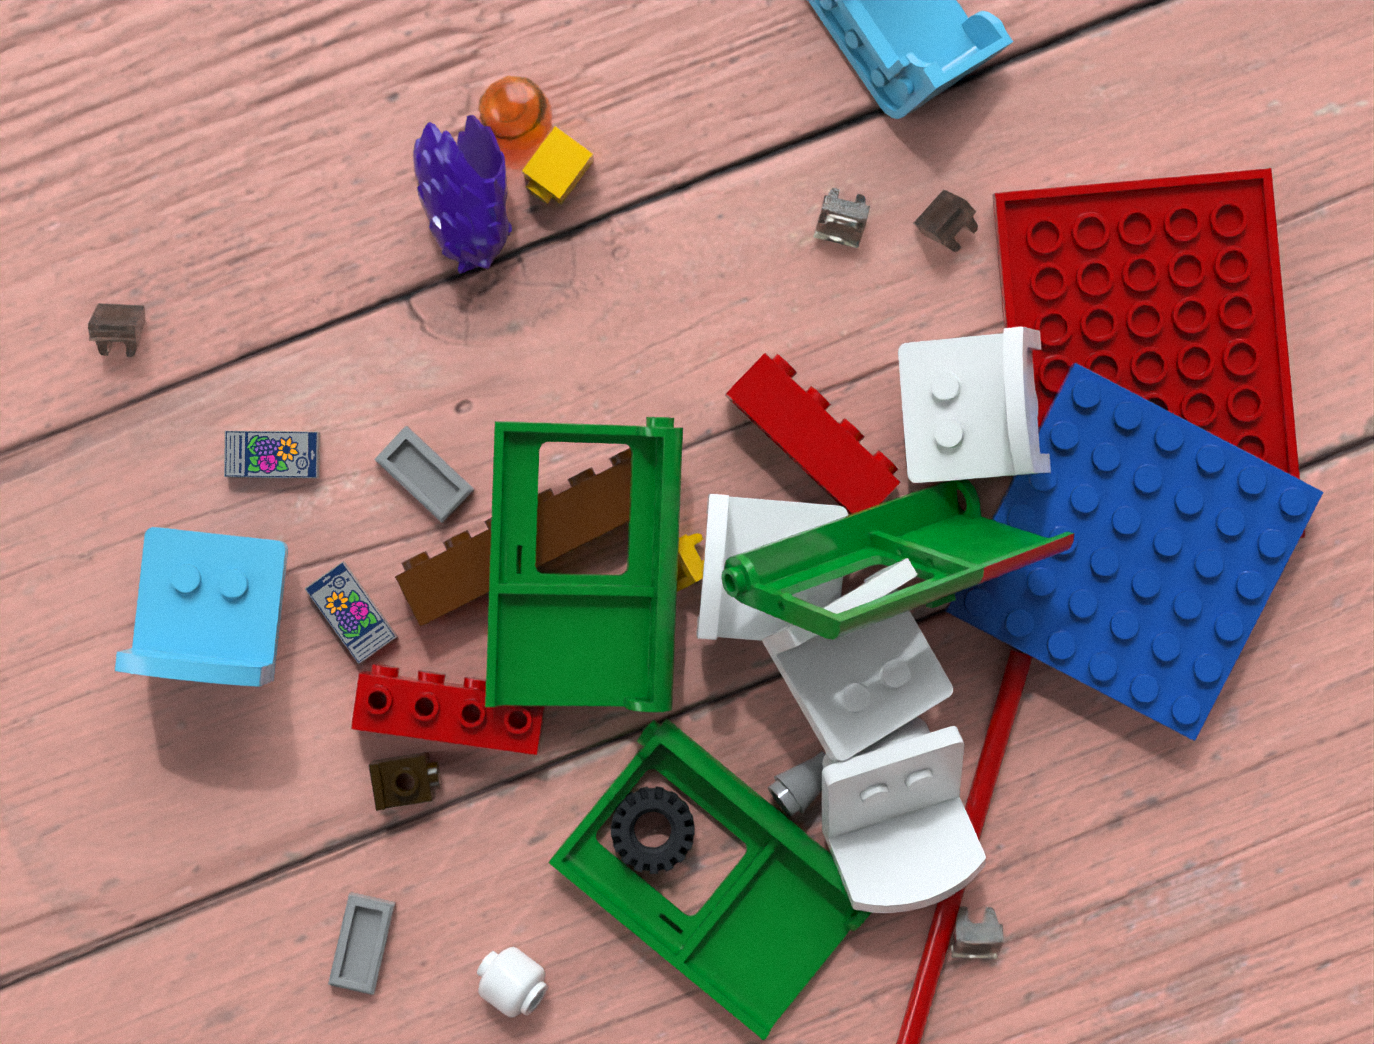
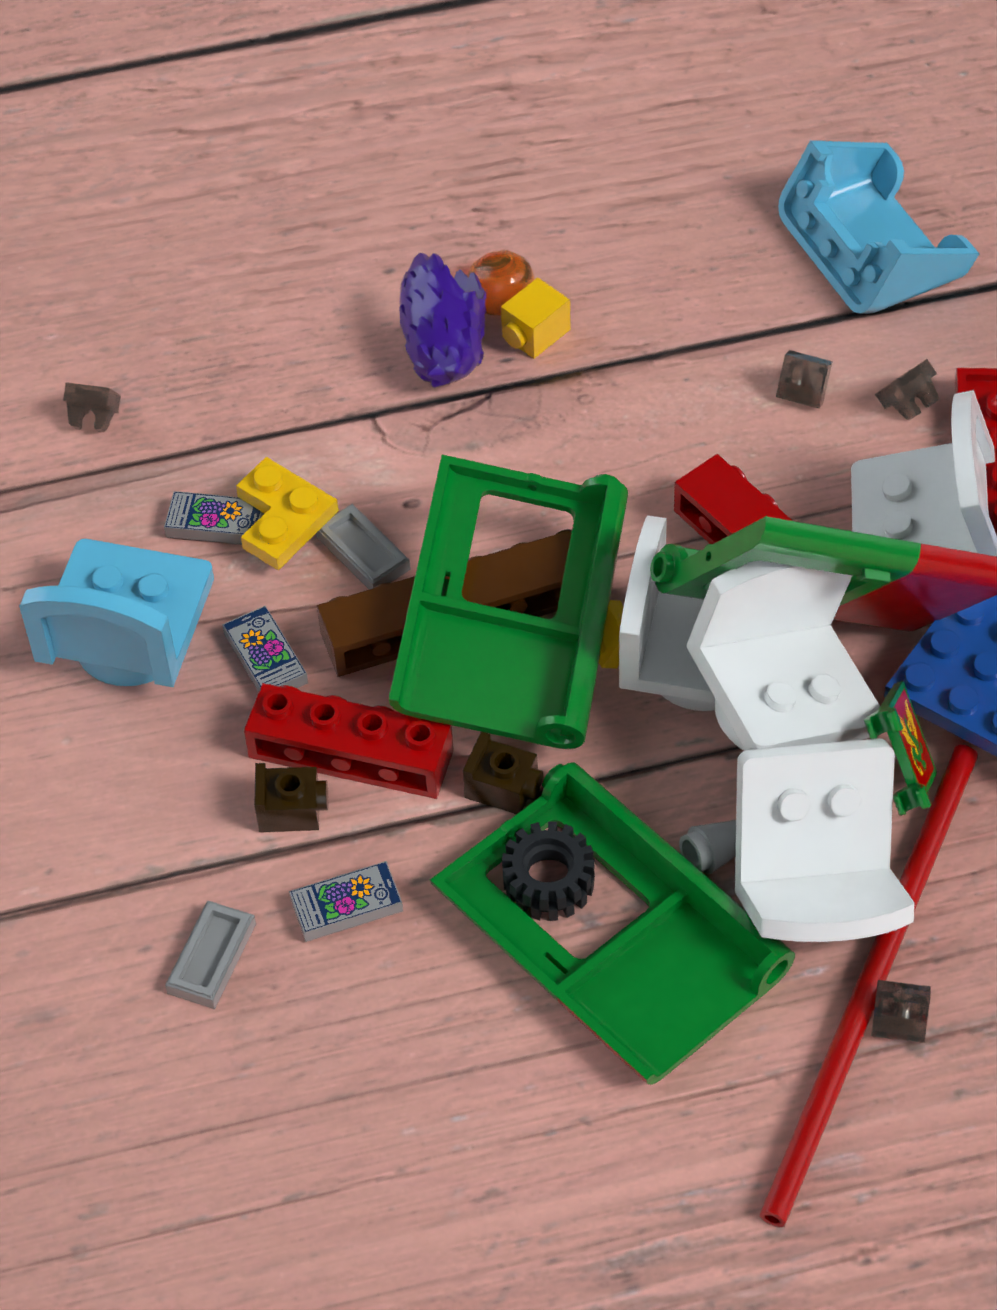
camera: 10 degrees right, 35 degrees down
(351, 447) = (291, 511): none -> yellow plate
(473, 876) = (346, 901): none -> tile
(511, 982) = (369, 998): white head -> none
(587, 718) = (501, 775): none -> dark brown brick
(970, 696) = (900, 722): none -> green flag

